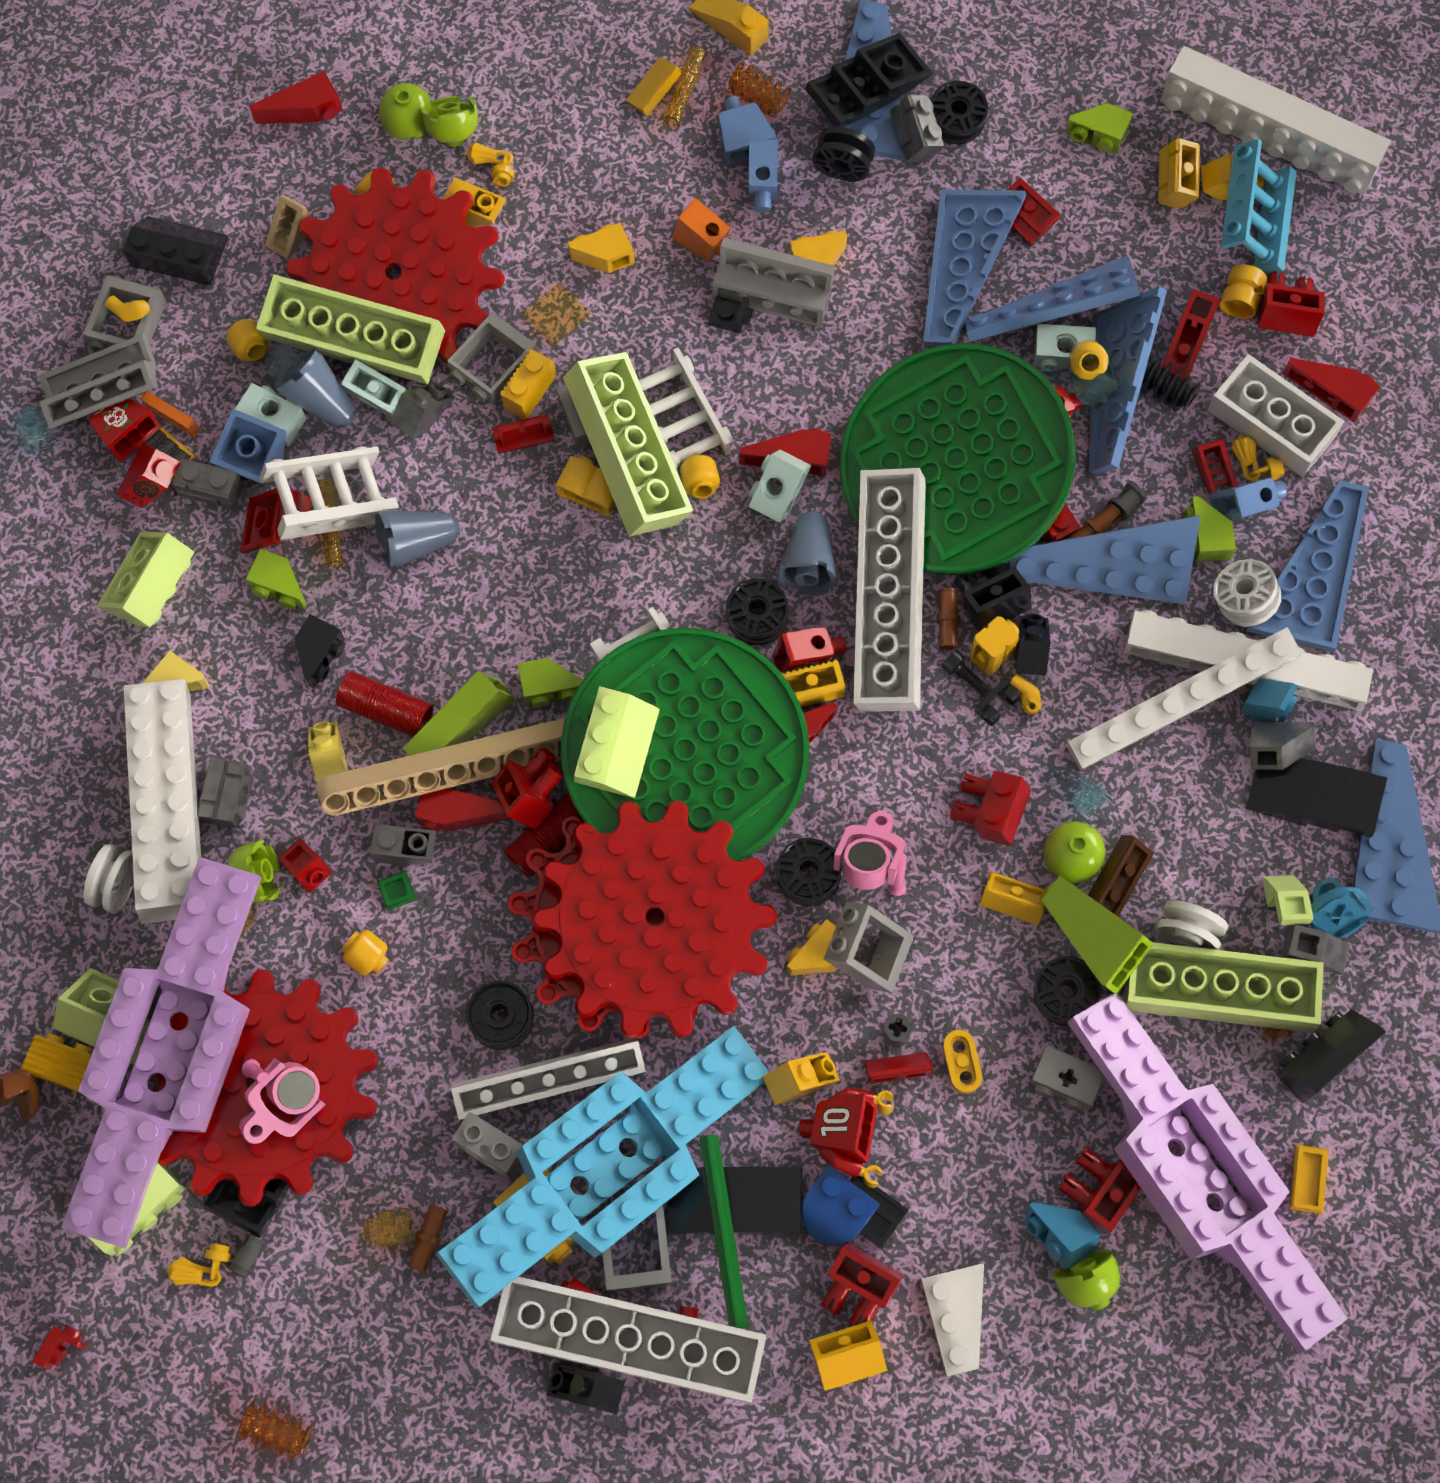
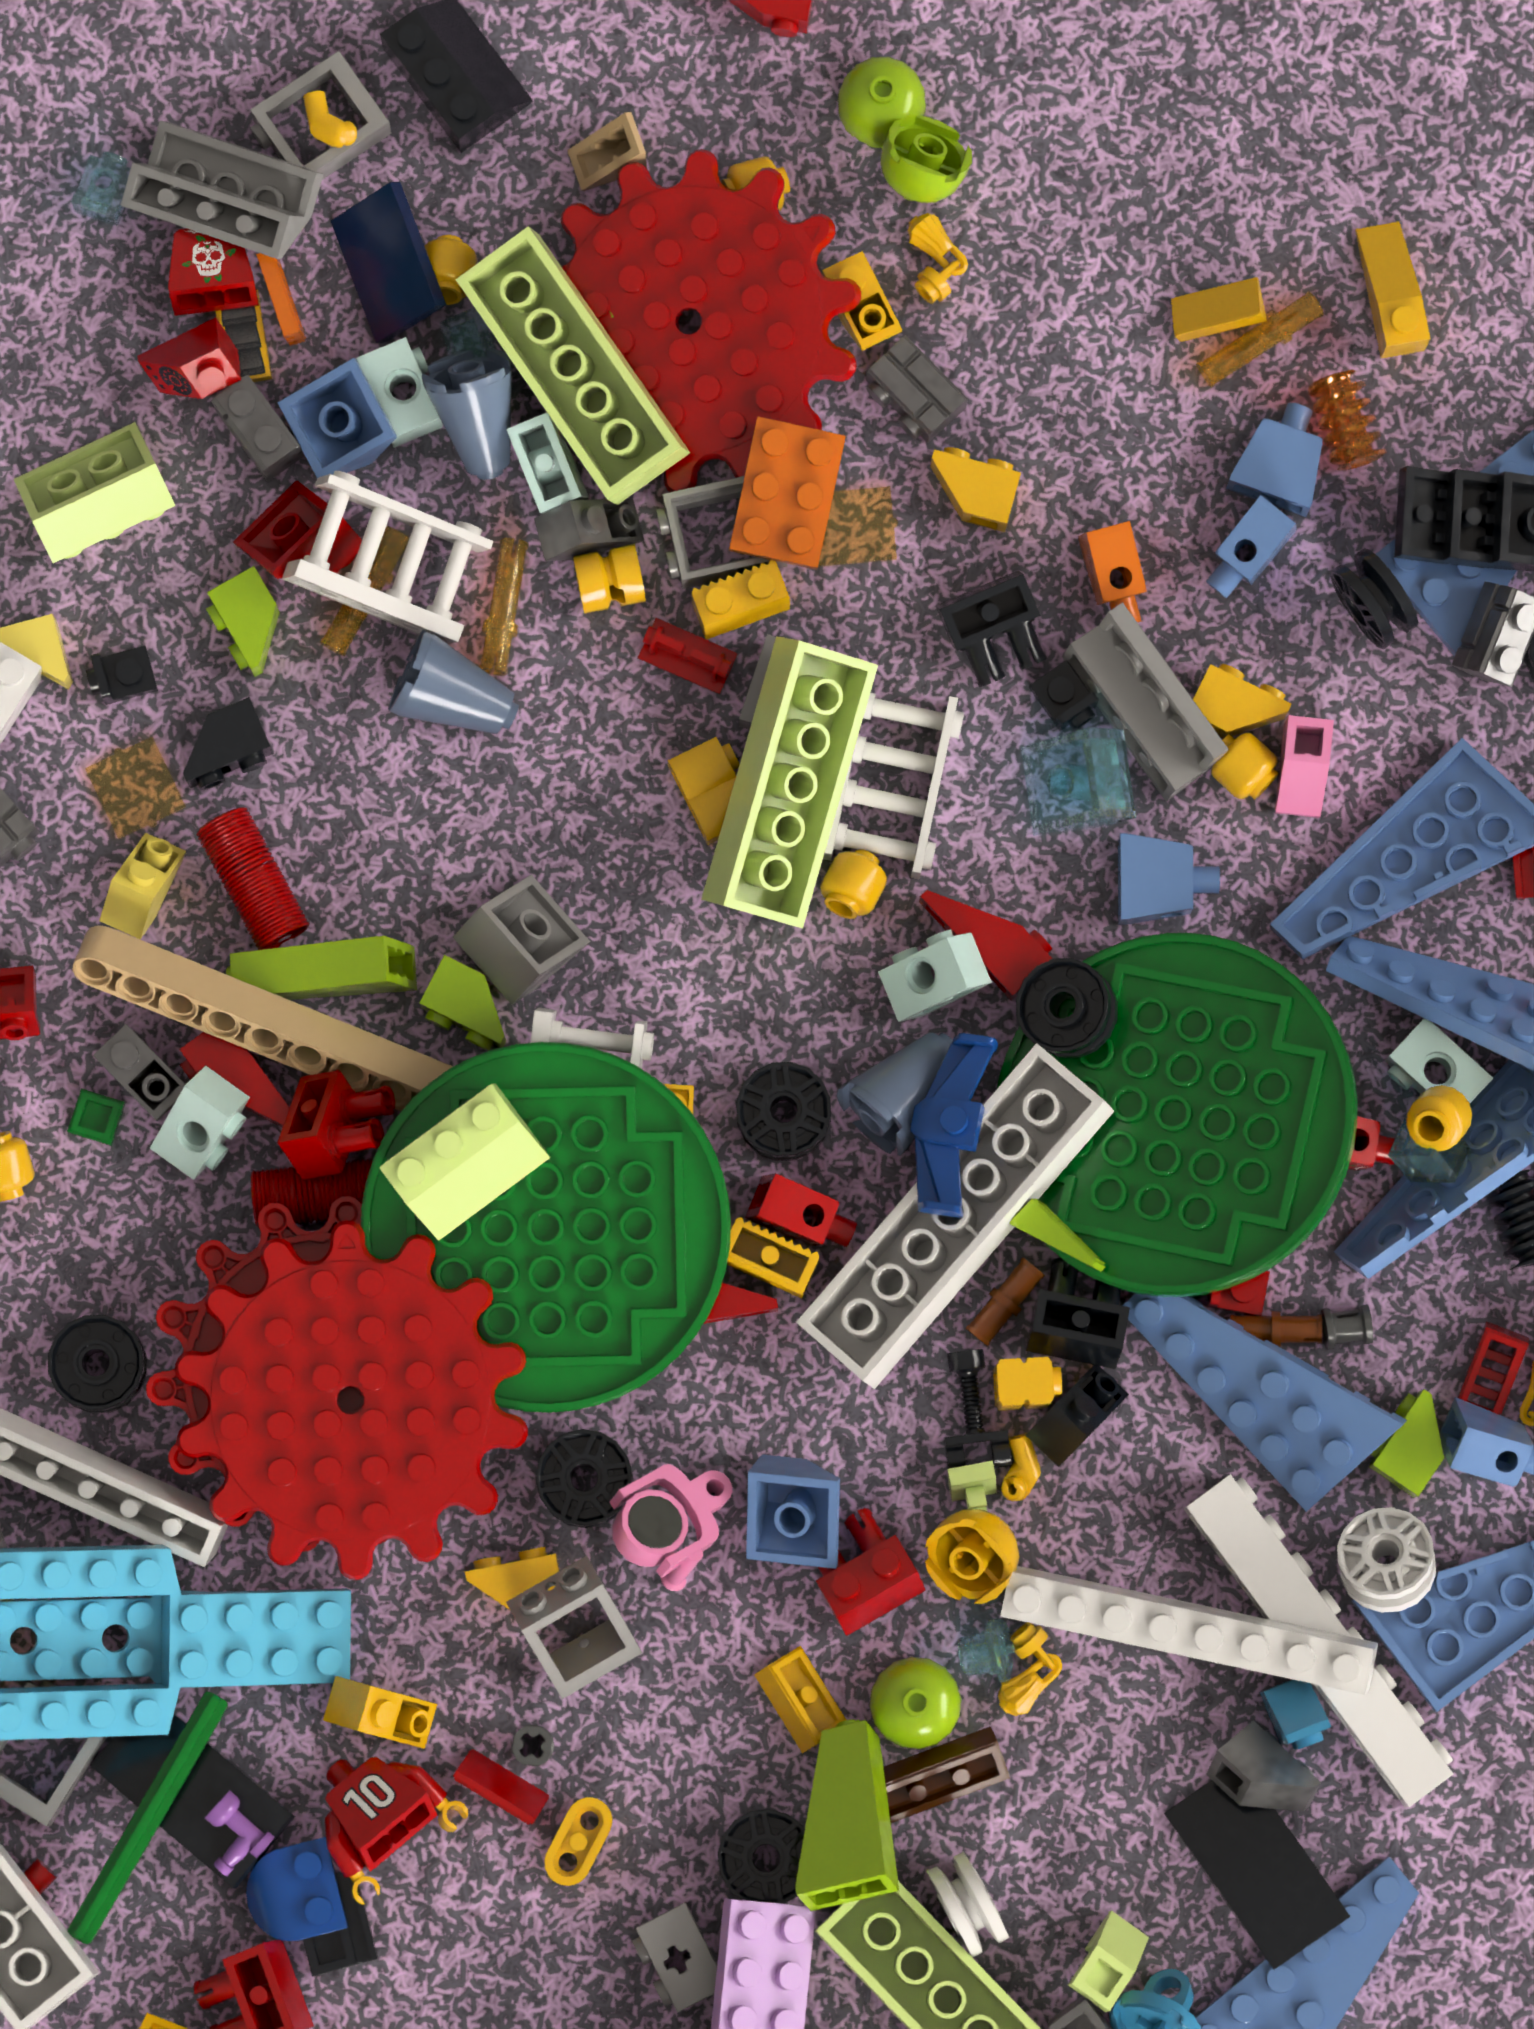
camera: 35 degrees right, 10 degrees up
(213, 356) = (388, 262): none -> dark blue tile
(232, 658) = (122, 675): none -> black bracket
(284, 709) = (135, 787): none -> clear yellow piece
(413, 487) = (501, 624): none -> clear yellow pin
(452, 423) = (609, 578): none -> yellow wheel
(456, 862) = (200, 1123): none -> light aqua brick
(511, 312) = (787, 493): none -> orange plate
(534, 226) = (915, 390): none -> flat silver brick
(550, 630) = (520, 939): none -> light grey slope
(662, 292) = (989, 610): none -> black brick
(770, 346) = (1078, 781): none -> clear light blue slope
(787, 1196) = (249, 1836): none -> medium lavender piece
(848, 278) = (1246, 766): none -> yellow head
(848, 543) = (948, 1123): none -> blue plate
(849, 361) = (1159, 879): none -> medium blue torso
(850, 434) = (1044, 993): none -> black wheel
(875, 255) = (1304, 766): none -> bright pink slope
(933, 801) = (792, 1512): none -> medium blue slope
(939, 560) = (1046, 1226): none -> lime slope
(1010, 719) = (973, 1484): none -> yellowish green tile
(1042, 751) = (972, 1555): none -> yellow cylinder
(1123, 802) = (1022, 1691): none -> yellow piece

